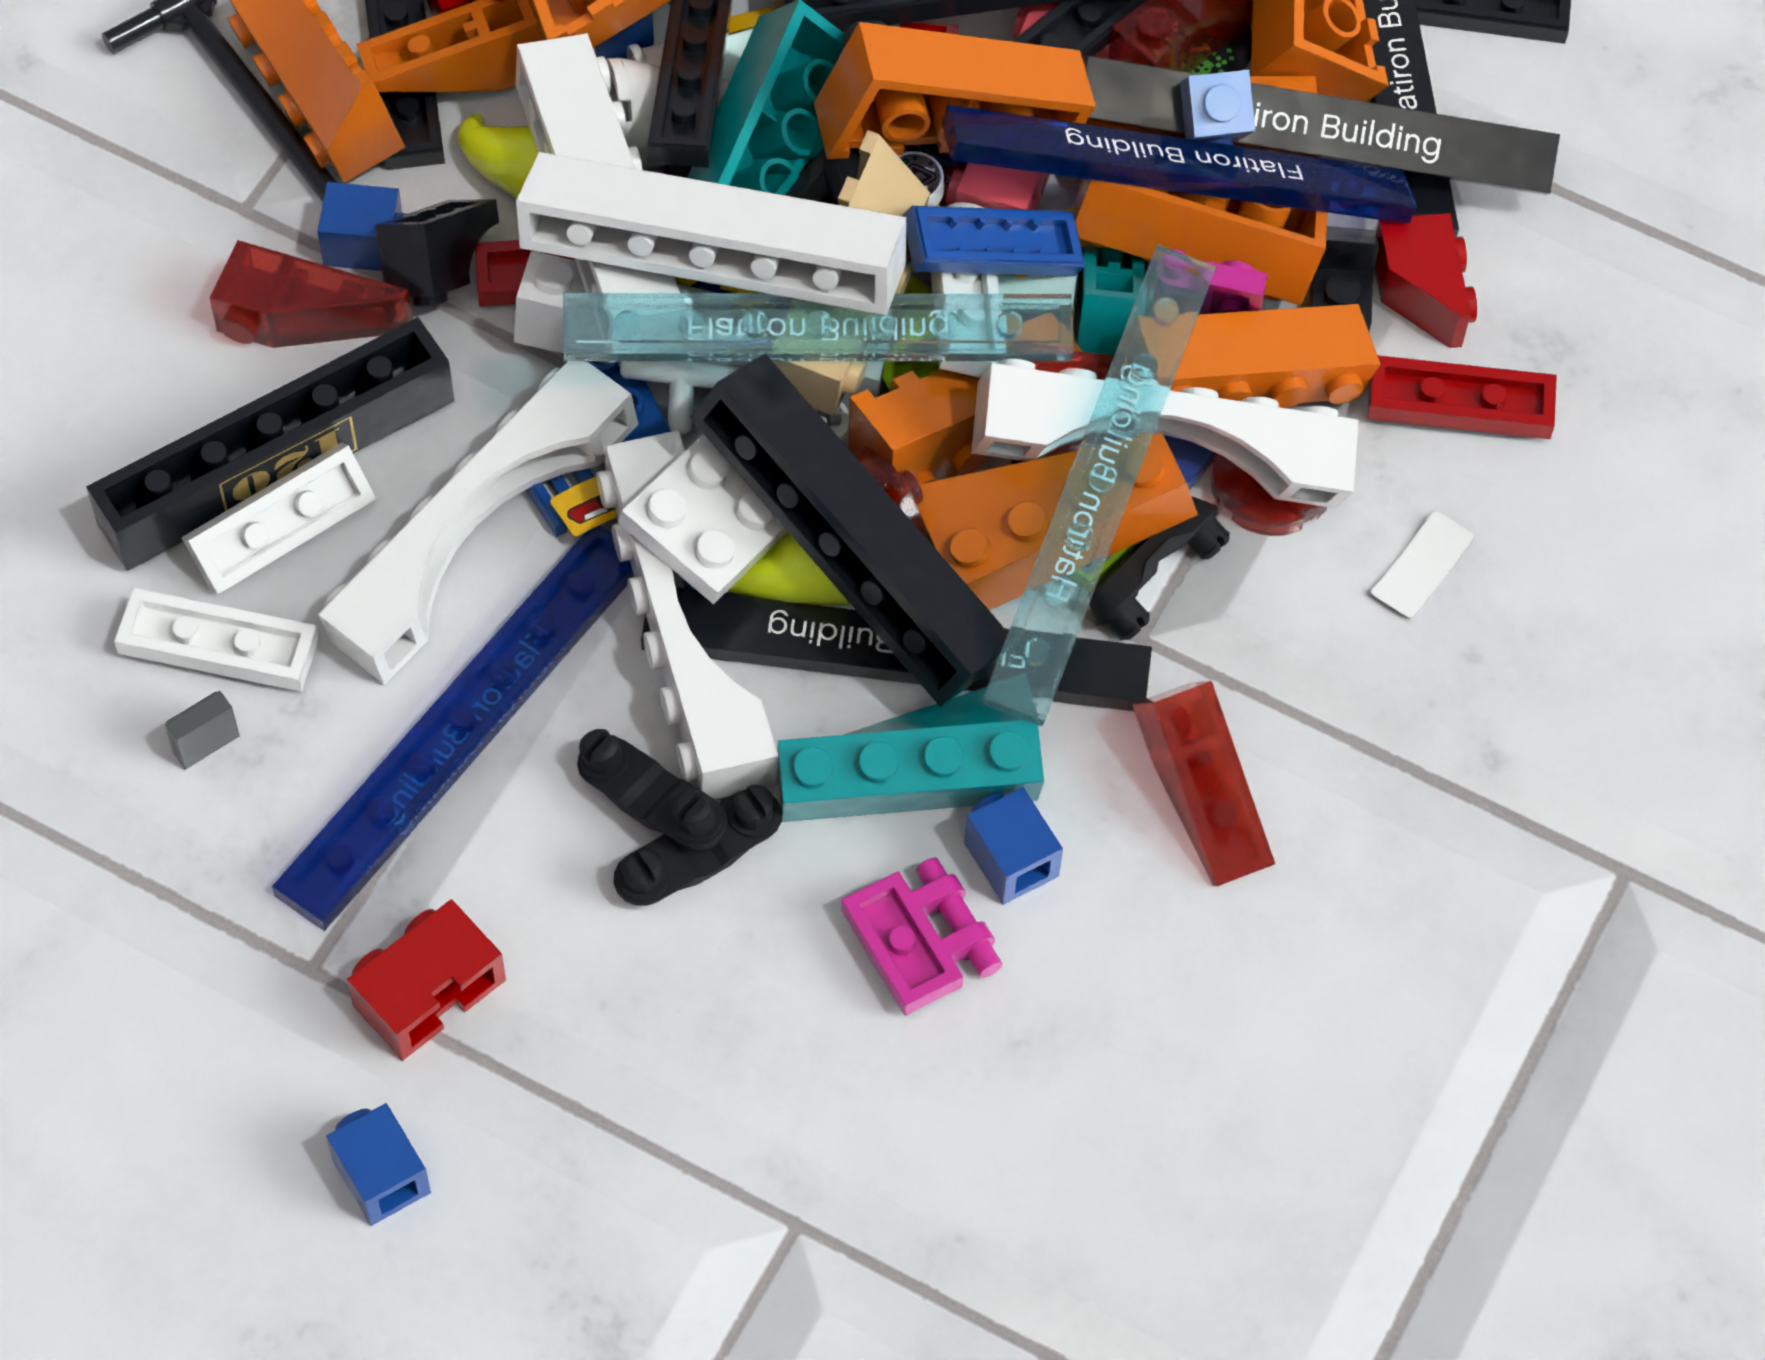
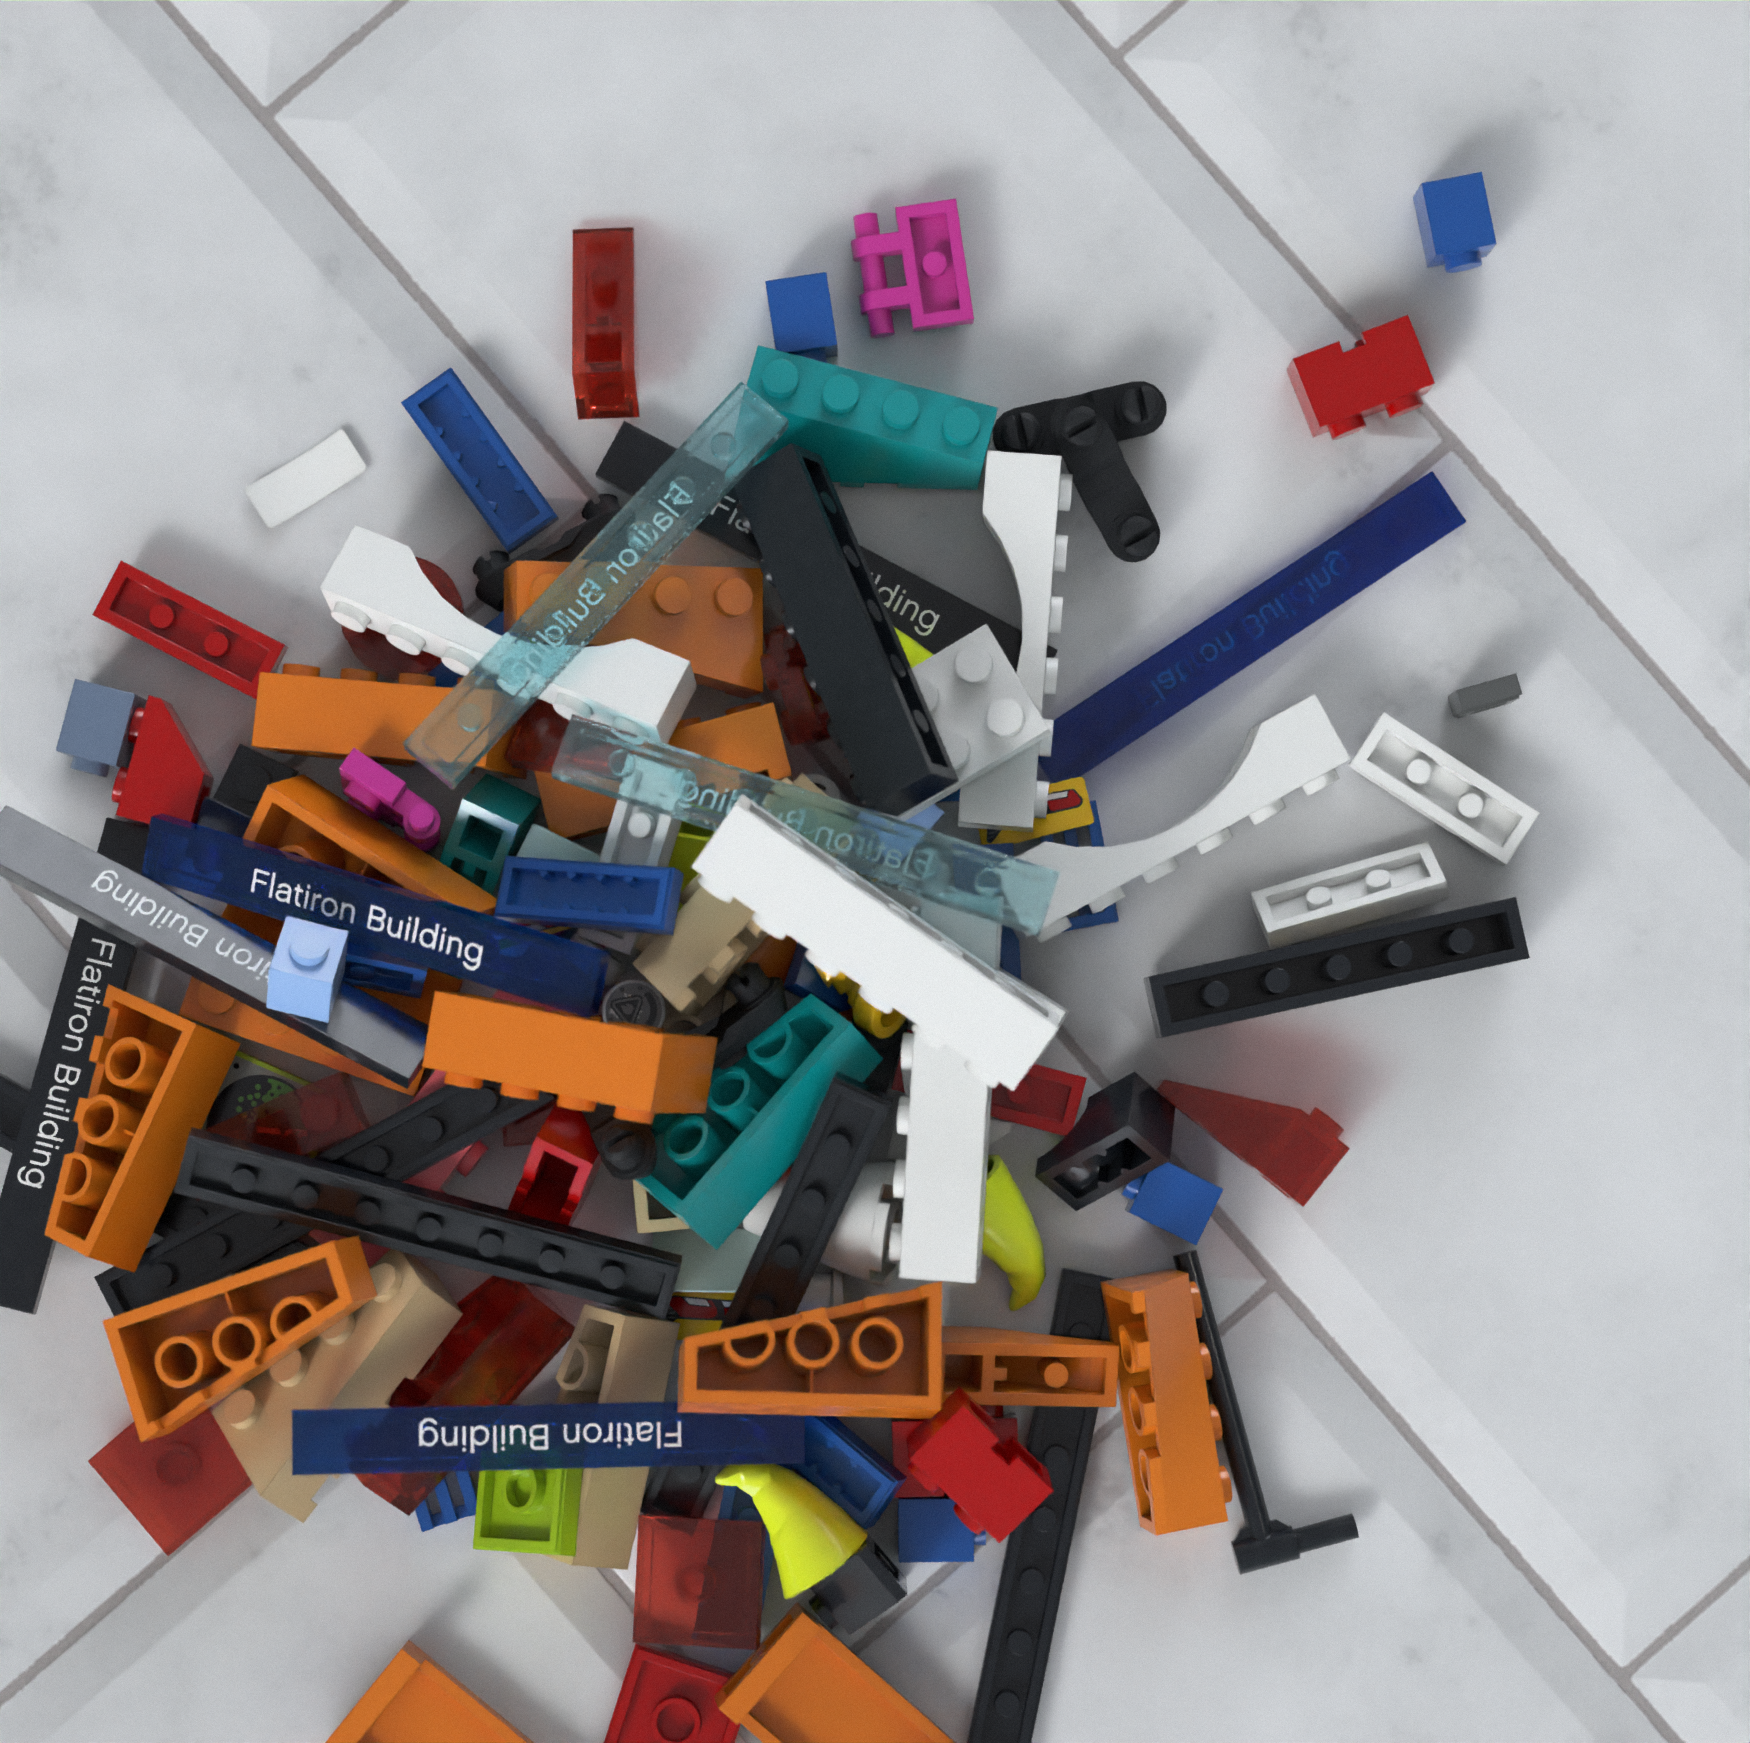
camera: 160 degrees left, 25 degrees up
(1266, 623) = (480, 460): none -> blue plate
(1505, 293) = (98, 727): none -> sand blue brick

